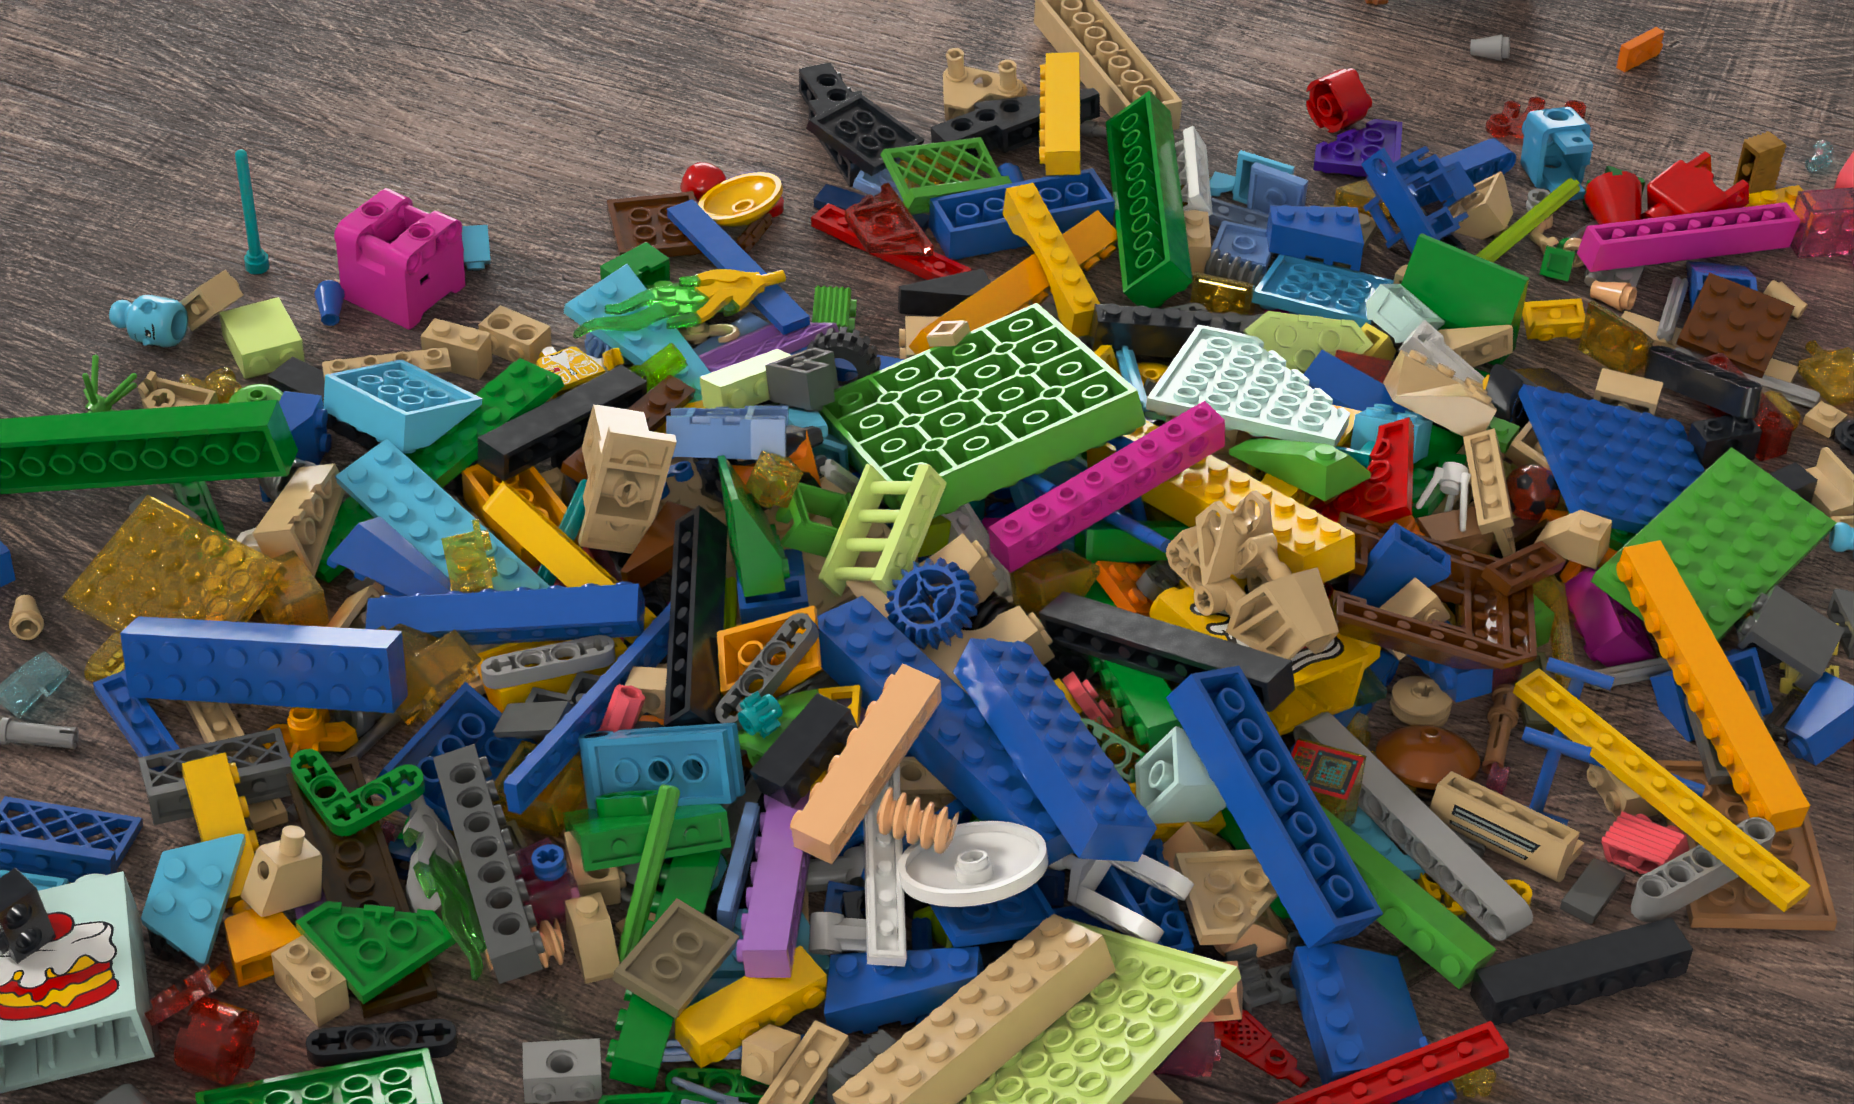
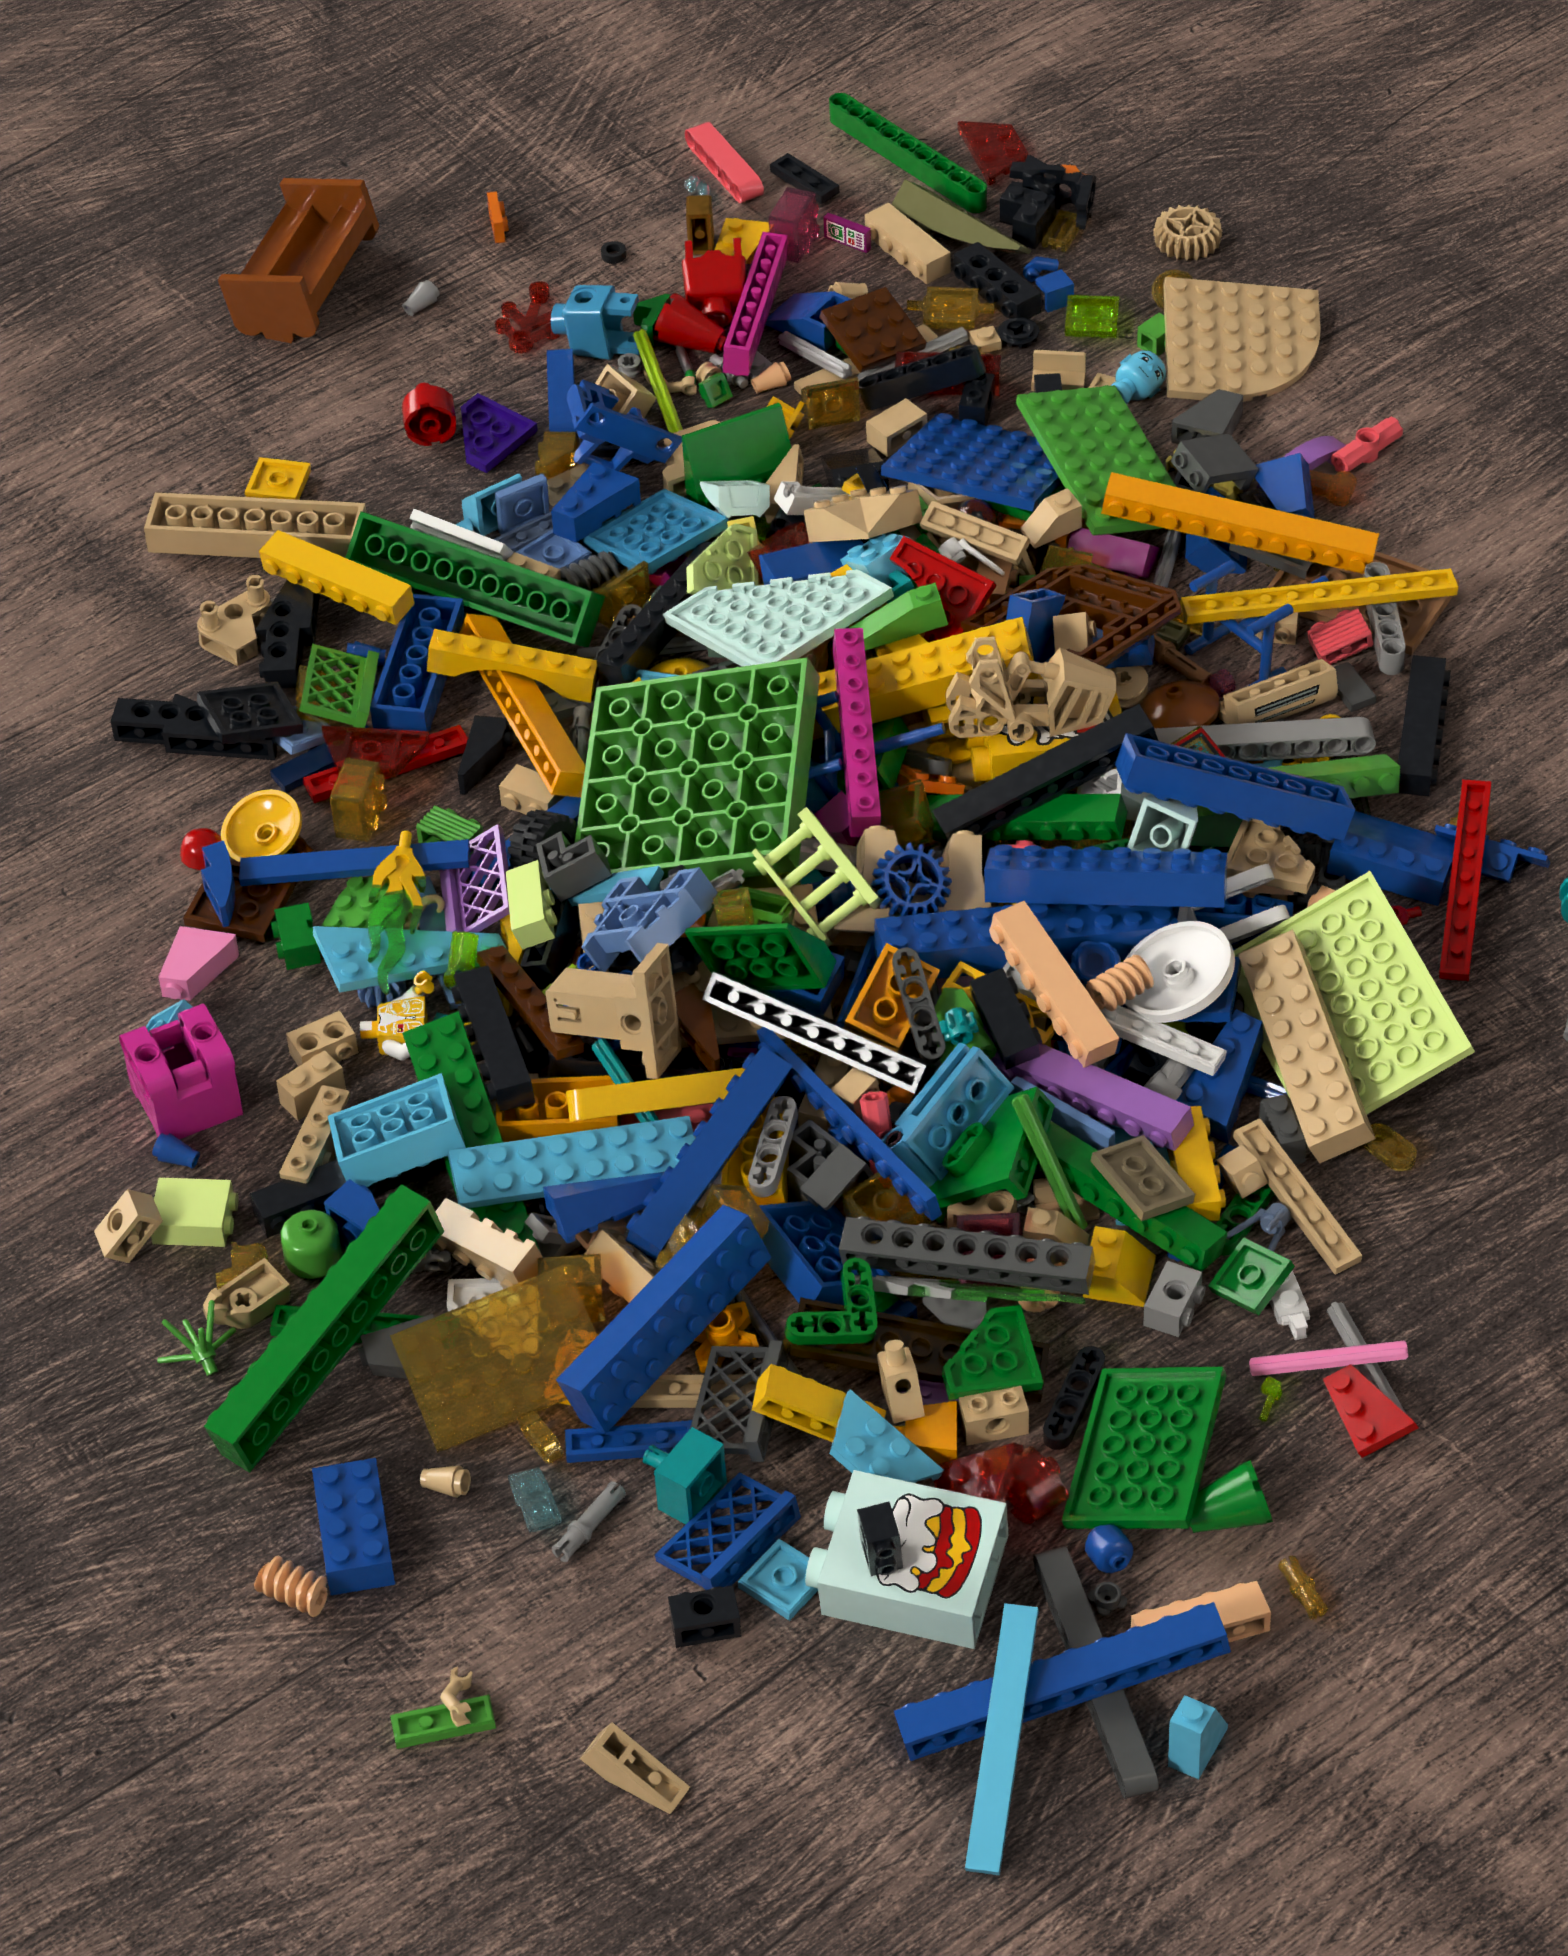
camera: 55 degrees left, 5 degrees up
(98, 771) = (688, 1474): none -> teal brick
(151, 320) = (112, 1278): medium azure piece -> none
(255, 259) = (69, 1183): teal piece -> none
(468, 562) = (637, 1148): clear yellow bracket -> none
(549, 862) = (992, 1211): blue bush -> none
(558, 227) = (196, 961): none -> bright pink slope
(578, 1001) = (1121, 1267): none -> yellow slope
(651, 198) = (219, 881): none -> blue slope
(818, 239) = (357, 799): none -> clear yellow brick
(946, 789) = (1093, 959): none -> blue hair
(948, 333) = (581, 757): tan tile -> none
(1182, 56) = (278, 479): none -> yellow plate
(1523, 568) = (1078, 558): reddish brown plate -> none
(1679, 143) = (613, 246): none -> black piece

